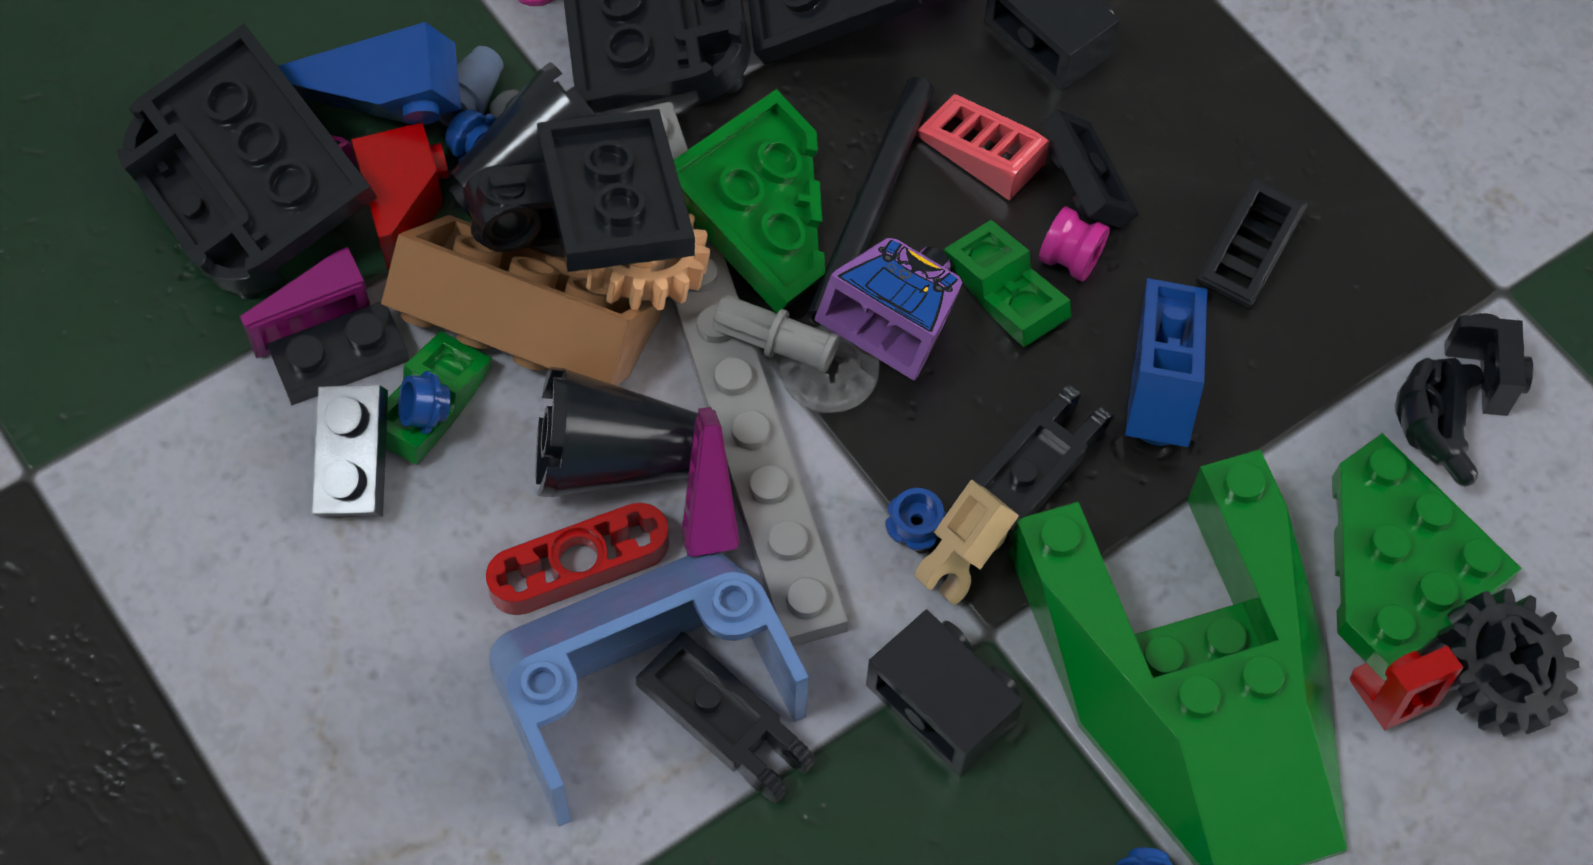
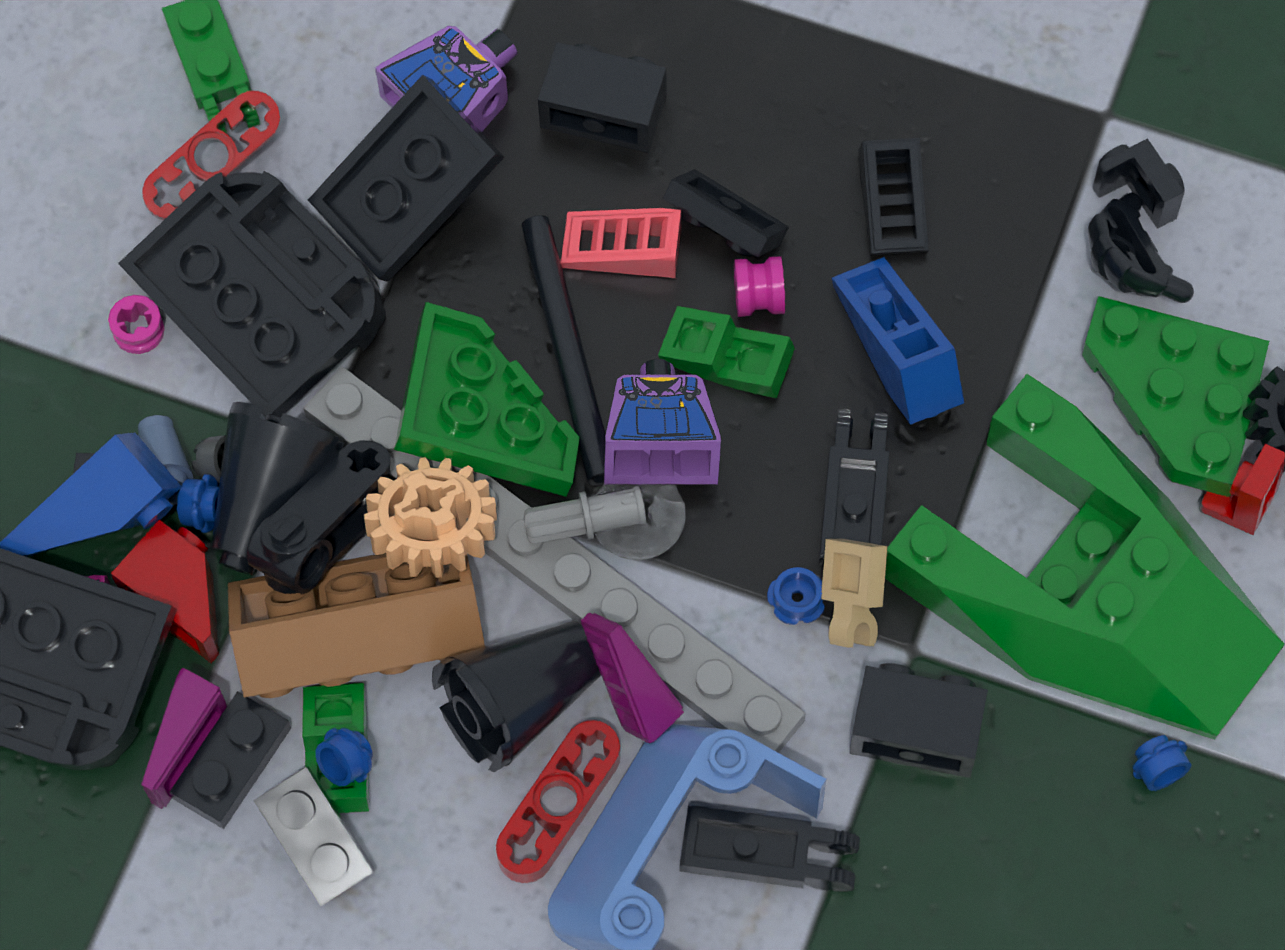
camera: 30 degrees left, 5 degrees up
(614, 190) = (385, 481): black plate -> none

